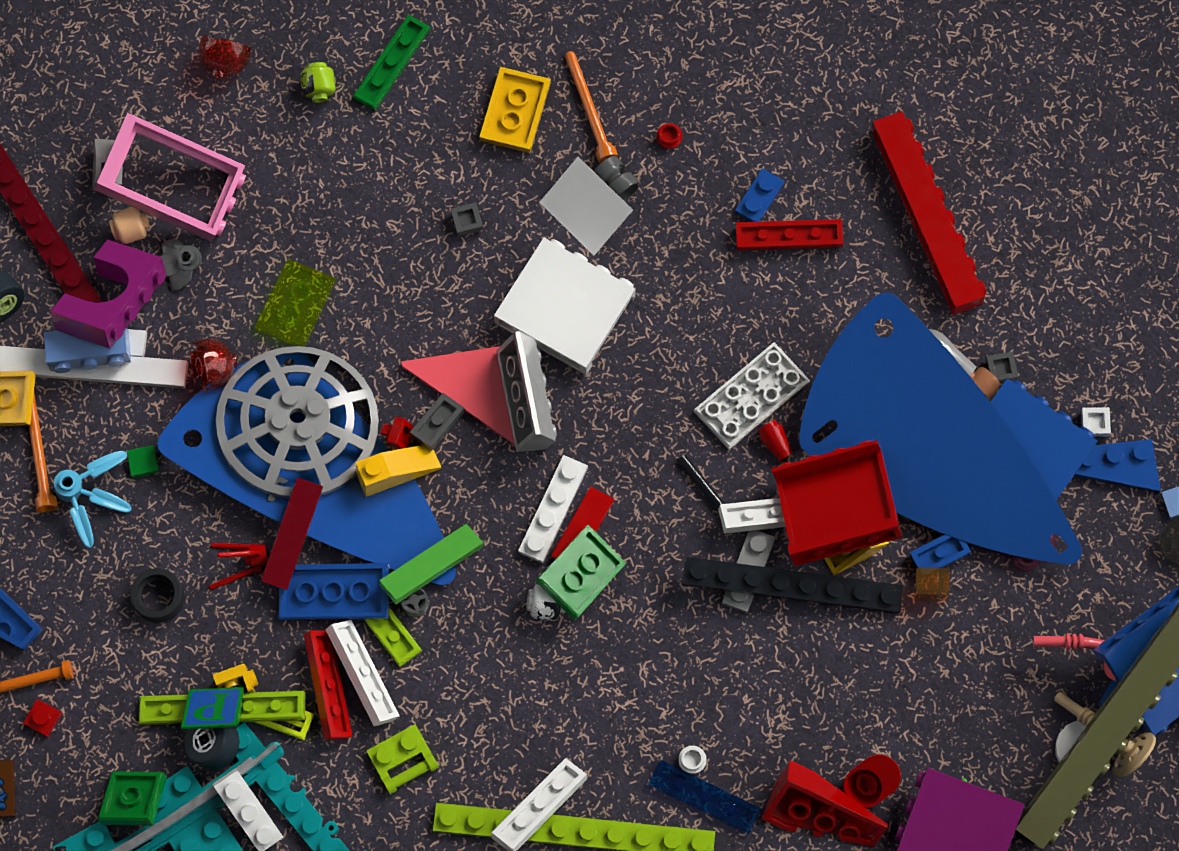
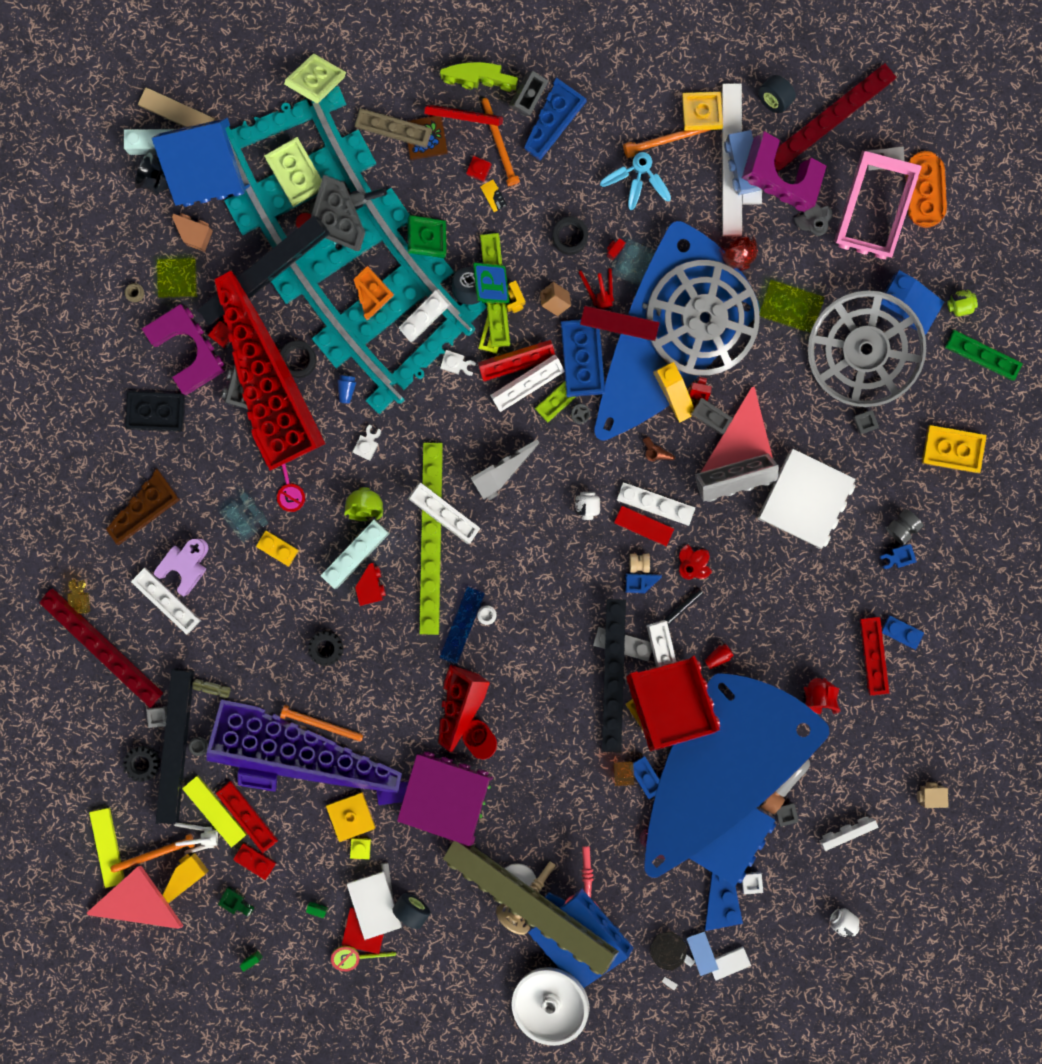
camera: 85 degrees right, 15 degrees up
(84, 700) = (493, 195): none -> yellow sticker
(129, 225) = (839, 180): light nougat head -> none
(143, 461) = (665, 213): green tile -> none
(160, 108) = (929, 192): none -> orange tile
(184, 533) = (615, 248): none -> red plate
(207, 510) = (633, 262): none -> clear light blue plate
(223, 55) = (976, 231): clear red cylinder -> none
(245, 623) = (555, 299): none -> medium nougat panel
(308, 149) = (916, 296): none -> blue slope
(321, 776) = (454, 363): none -> white plate
(371, 191) = (879, 343): none -> light grey dish
(396, 752) = (476, 413): lime plate -> none
(430, 564) = (607, 422): bright green tile -> none
(480, 503) = (655, 452): none -> copper animal
(491, 724) = (495, 477): none -> light grey wedge
(580, 572) = (609, 527): tile -> none
(586, 206) = (883, 507): white sticker -> none
(604, 148) = (928, 517): orange piece -> none
(634, 537) = (639, 563): none -> tan wheel
(639, 460) = (696, 561): none -> red plate
(655, 189) = (900, 556): none -> blue plate
(663, 540) = (640, 582): none -> blue tile
(669, 136) = (943, 563): red plate -> none
(751, 396) = (751, 637): white tile -> none
(837, 305) = (821, 695): none -> red helmet
(928, 213) = (900, 755): red brick -> none
(985, 174) = (933, 796): none -> tan brick
(1031, 288) = (848, 833): none -> white plate
(1155, 303) = (844, 923): none -> white head

